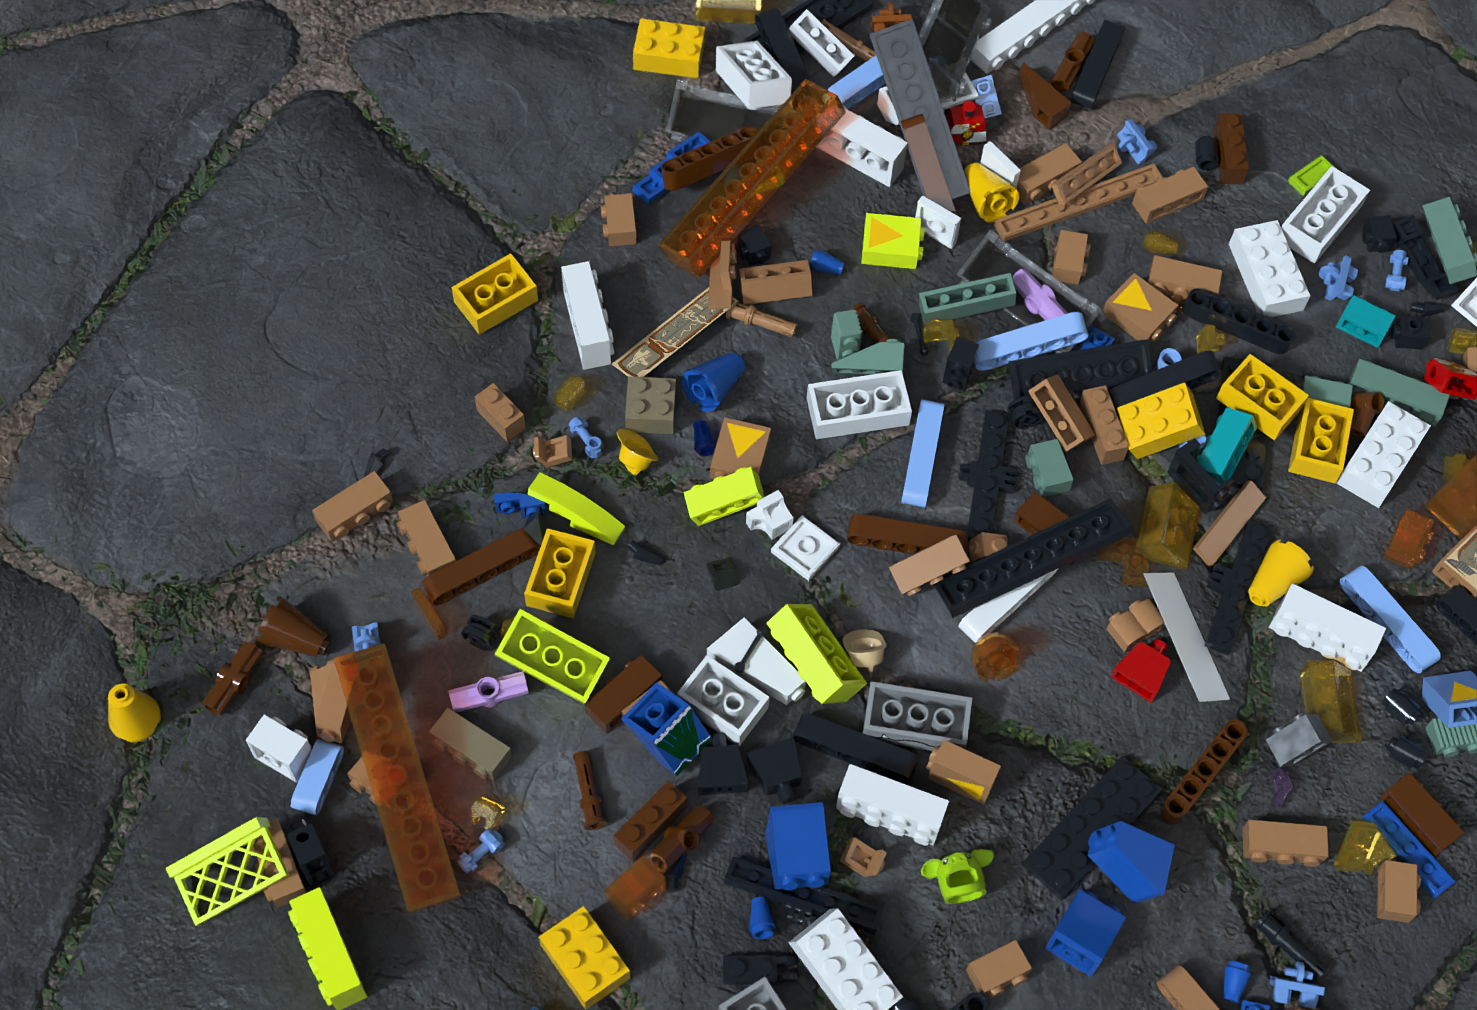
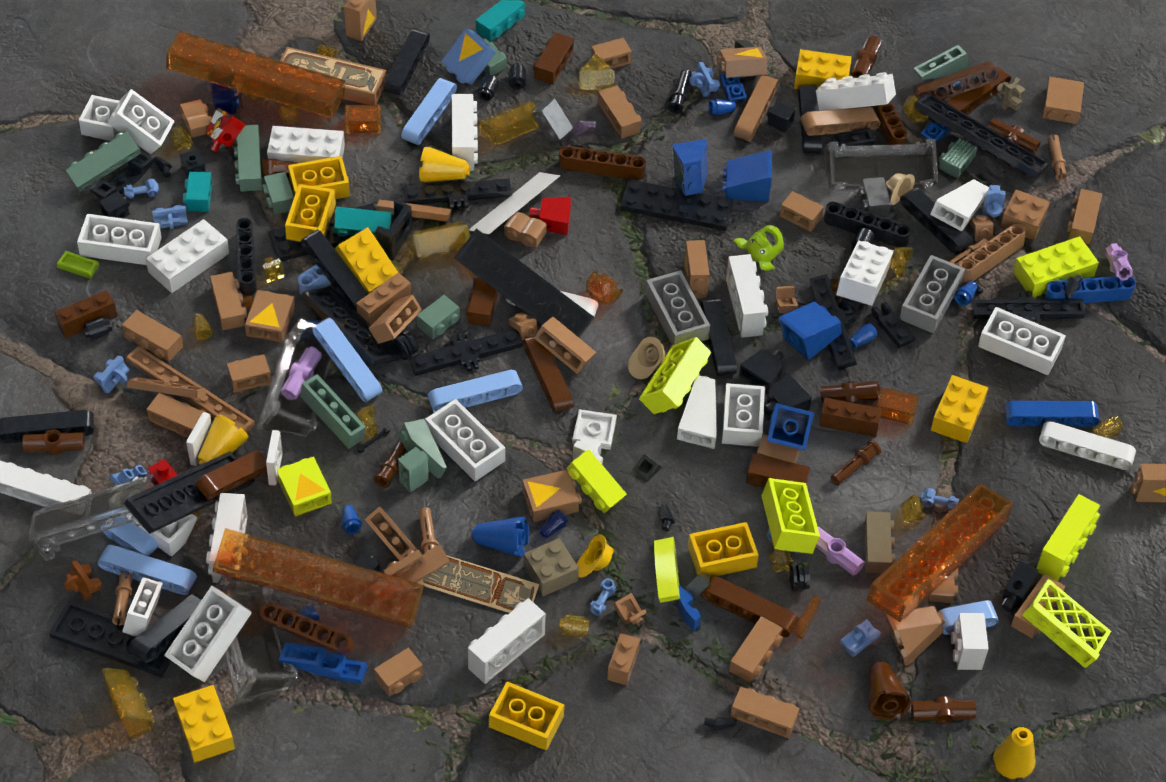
camera: 120 degrees left, 10 degrees down
(740, 666) = (715, 412): black hinge -> none
(960, 363) = (393, 392): black brick -> none
(1044, 100) = (106, 445): reddish brown slope -> none
(1410, 850) = (577, 60): blue tile -> none

